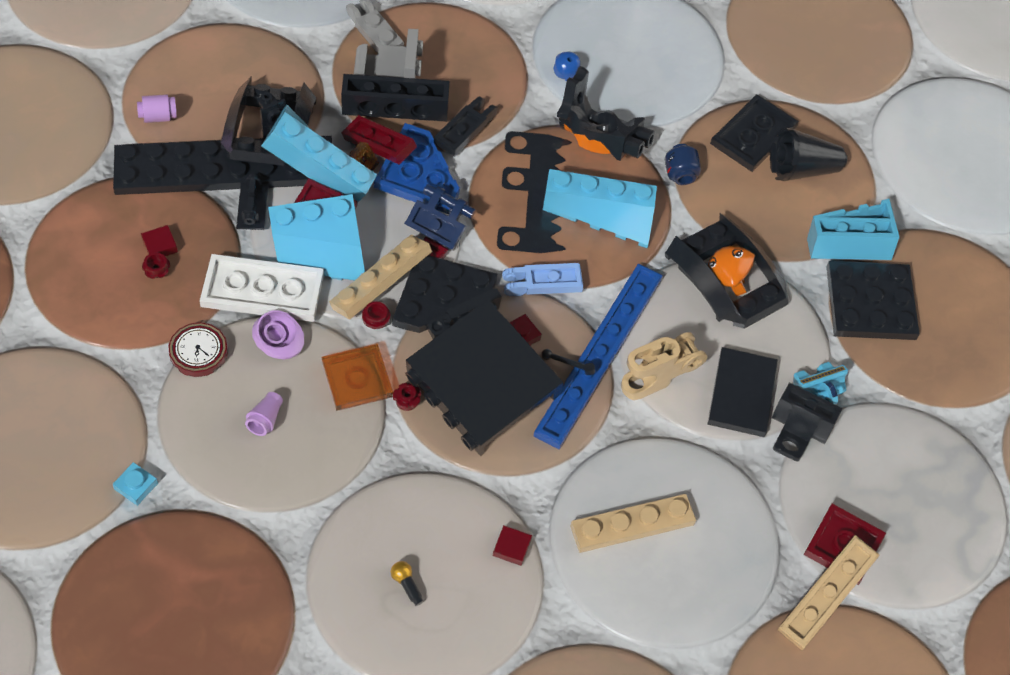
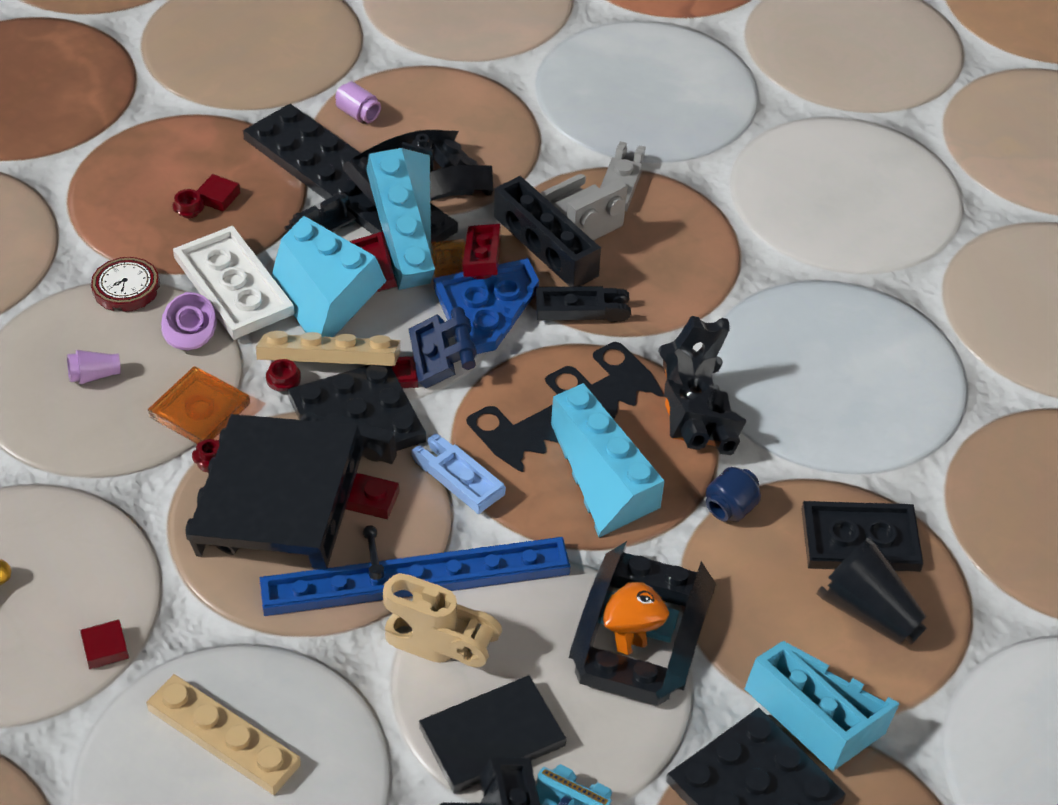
camera: 55 degrees right, 10 degrees down
(566, 65) = (748, 330): blue piece -> none

